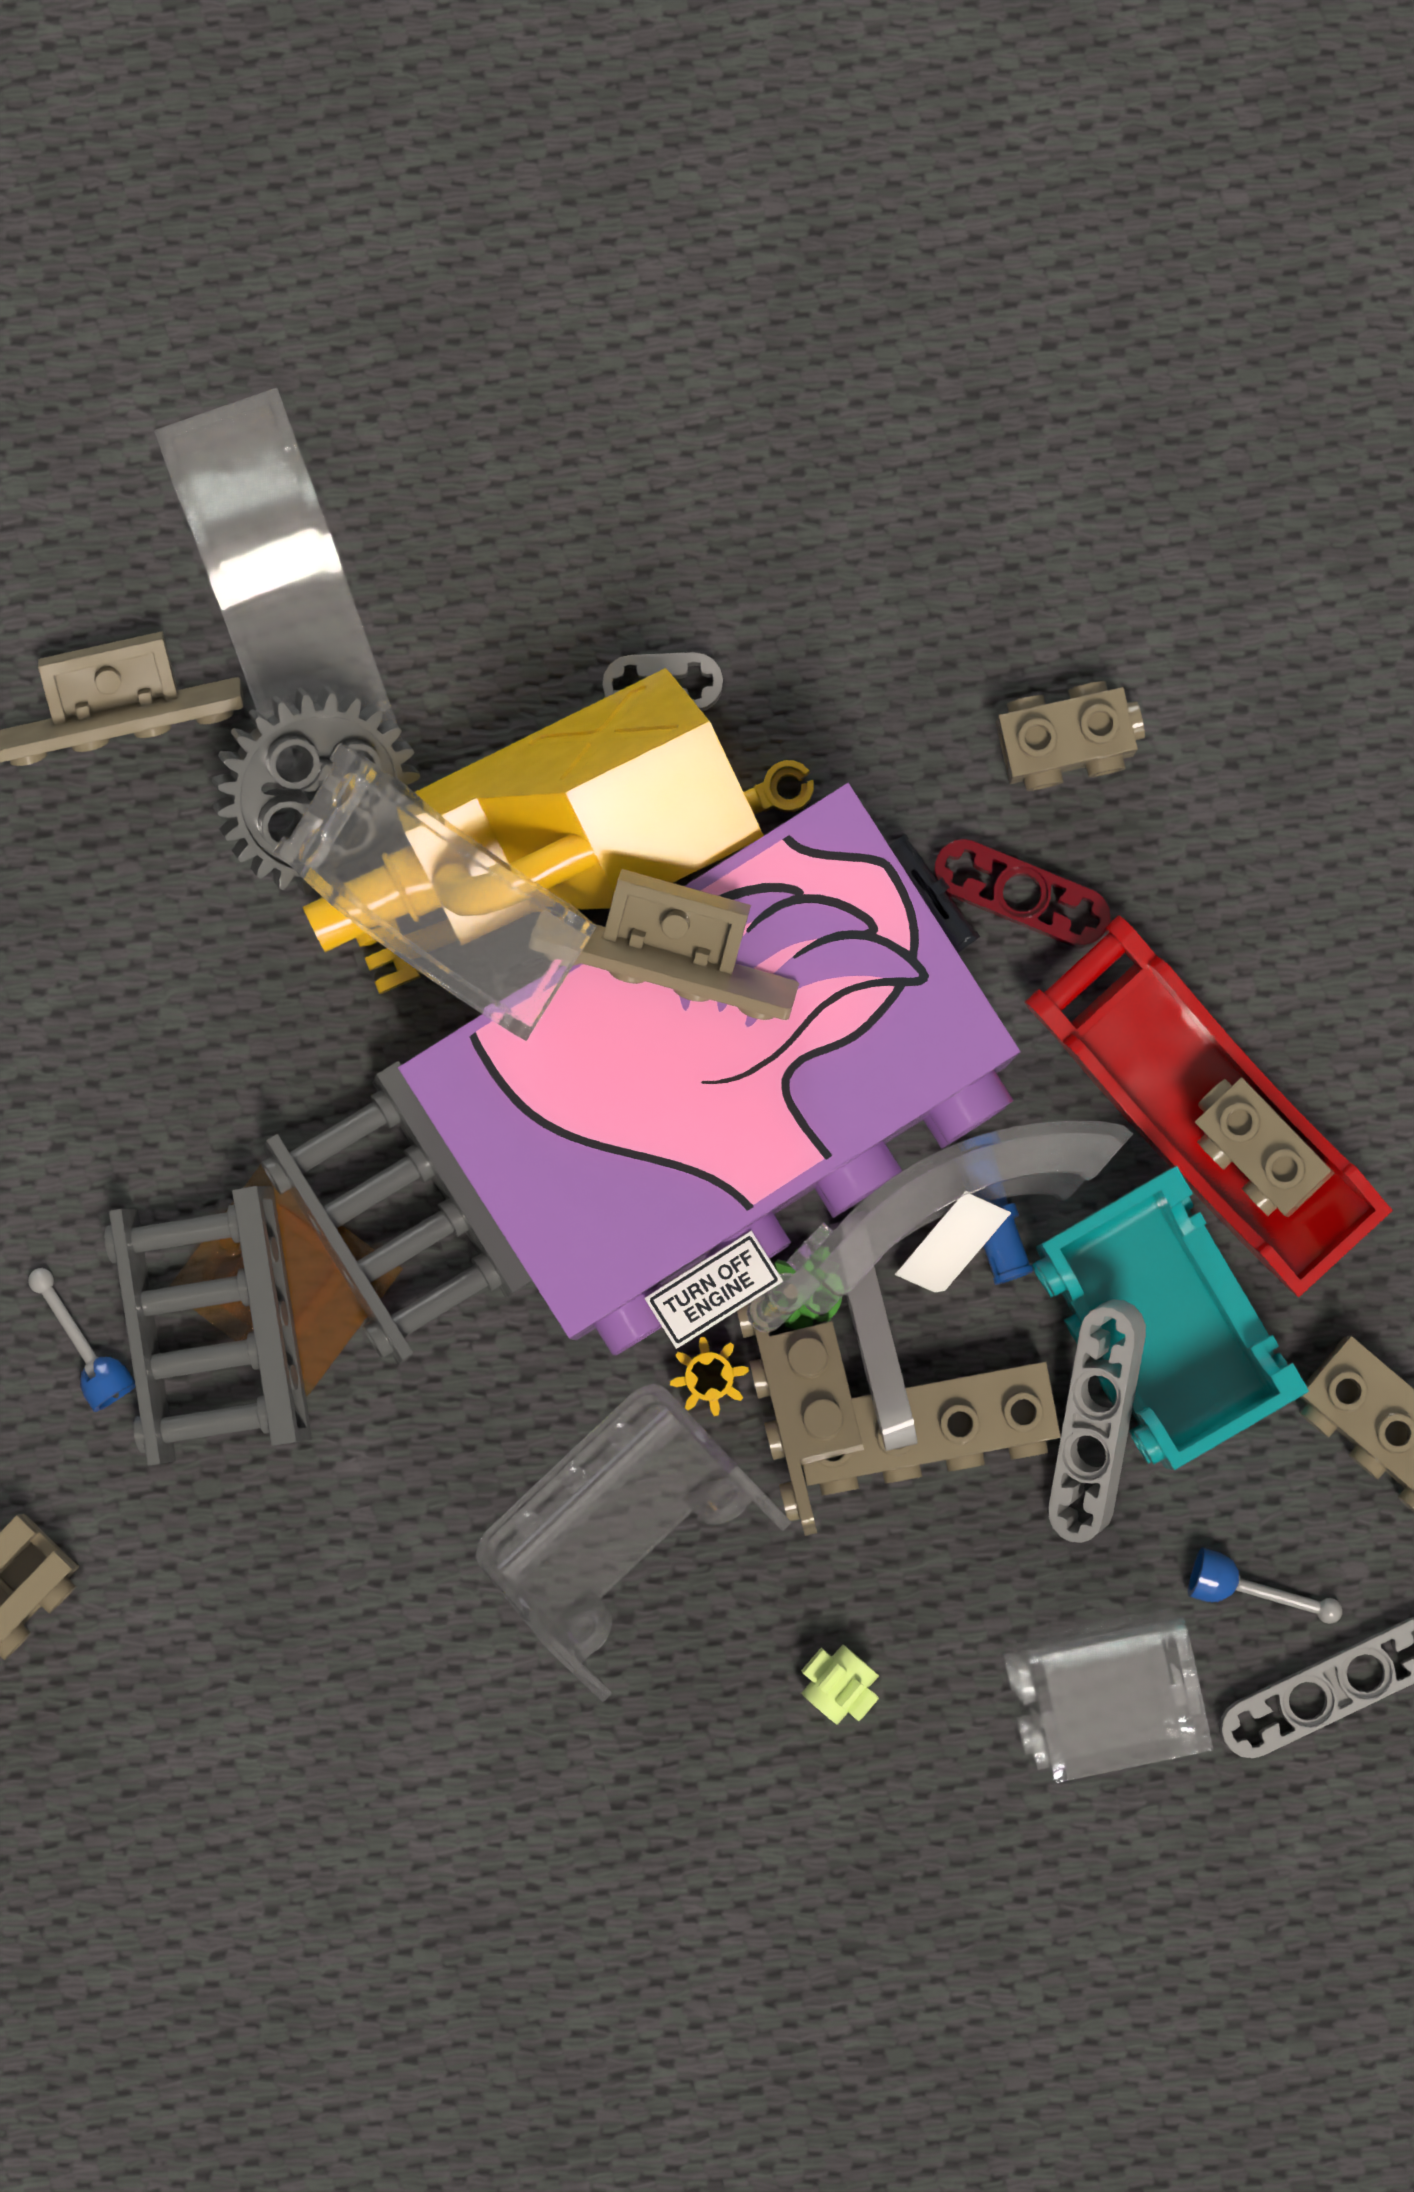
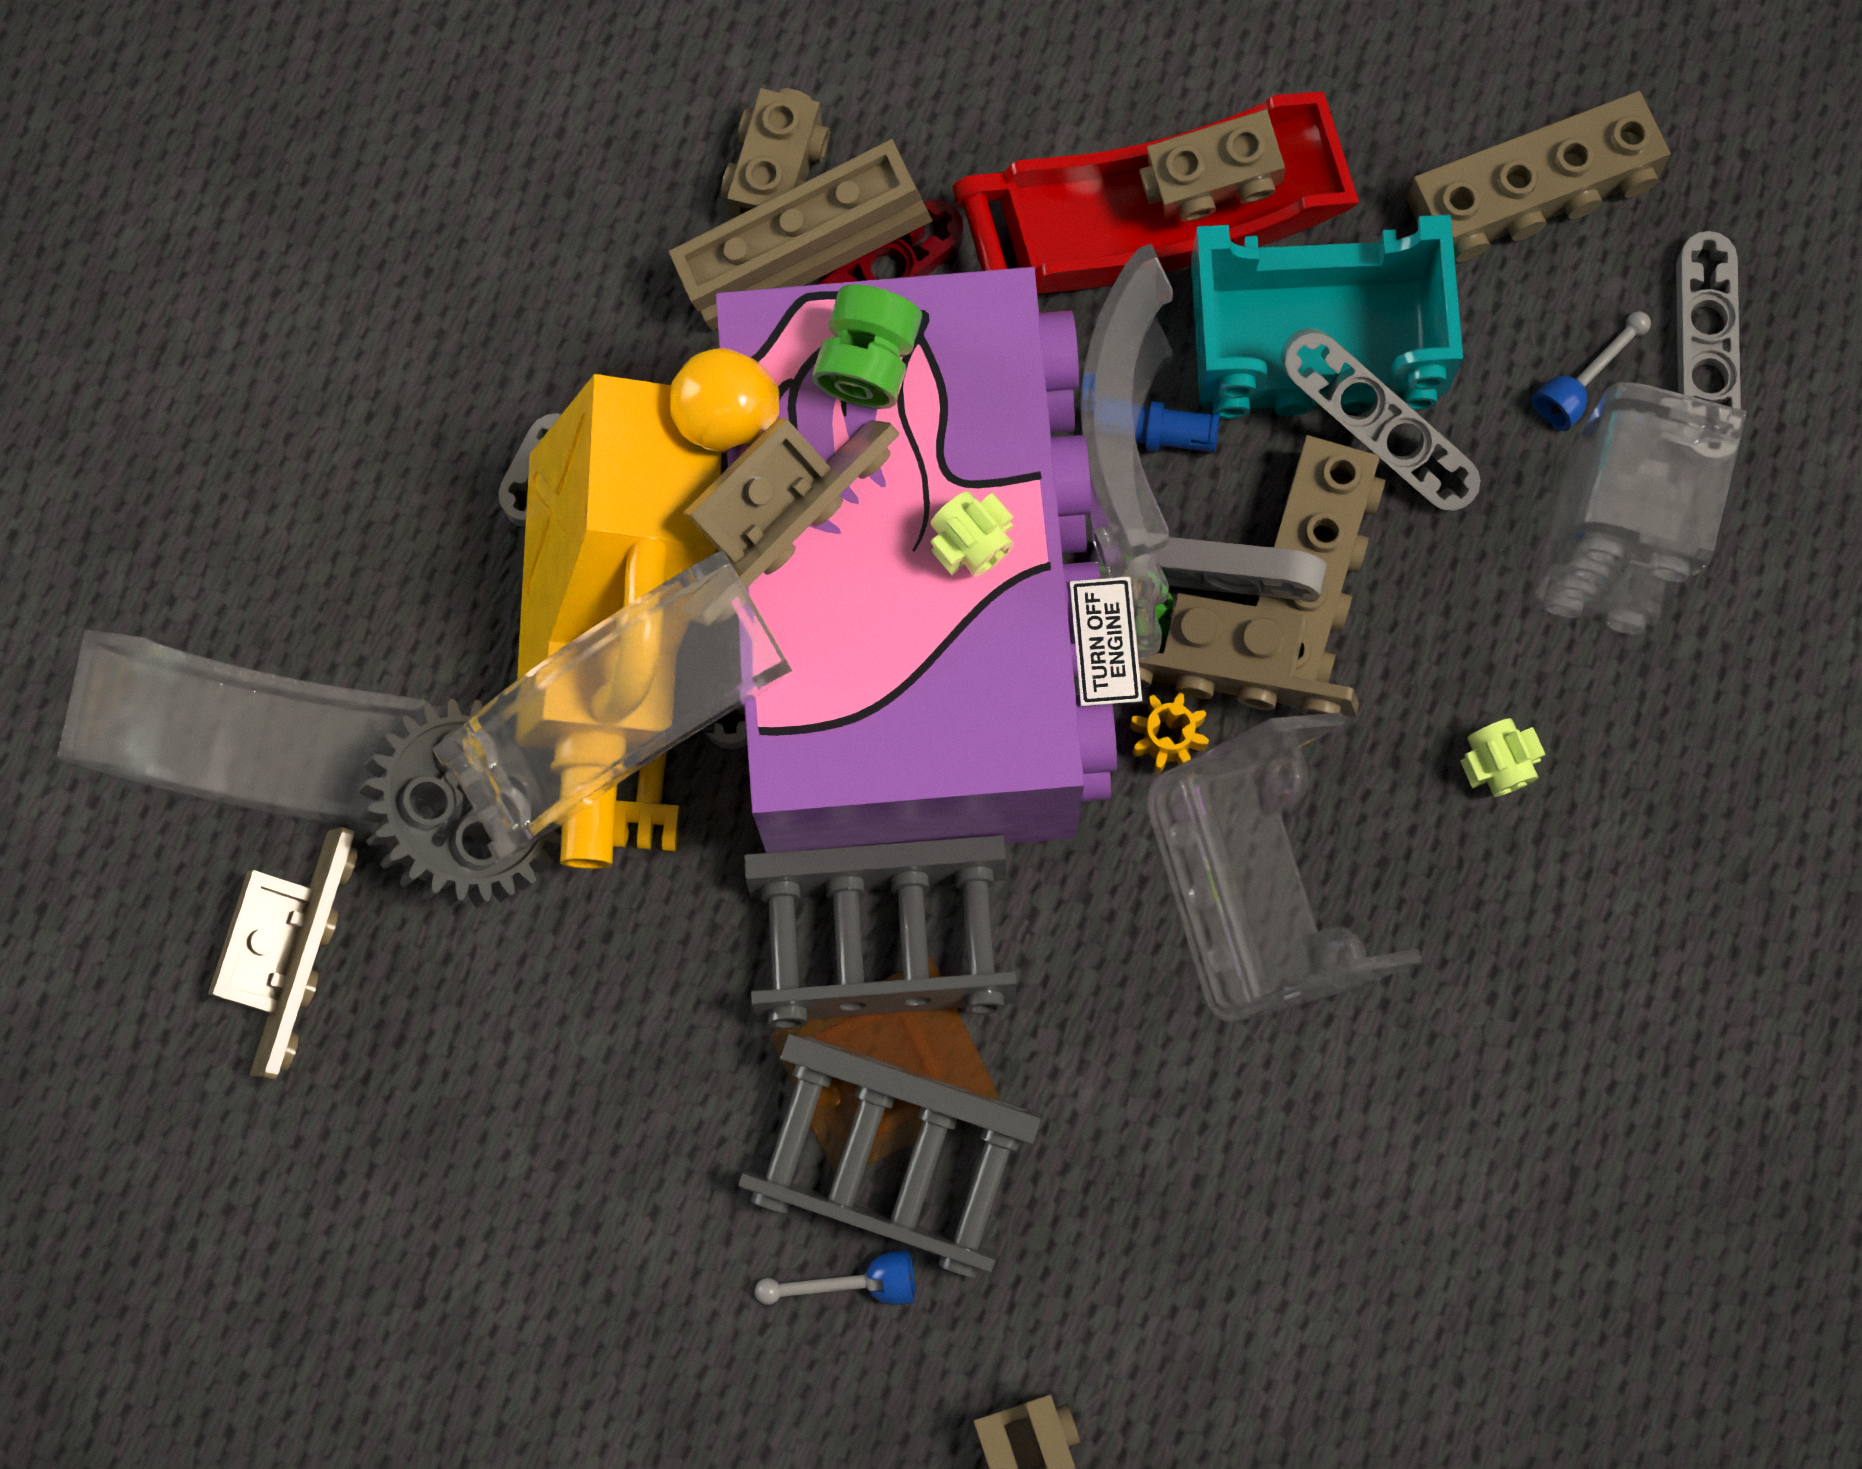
camera: 60 degrees left, 10 degrees down
(733, 1128) = (971, 533): none -> yellowish green gear
(748, 846) = (723, 399): none -> yellow hair
(879, 942) = (870, 337): none -> bright green wheel
(953, 1243) = (1163, 464): white sticker -> none
(996, 803) = (804, 230): none -> dark tan brick

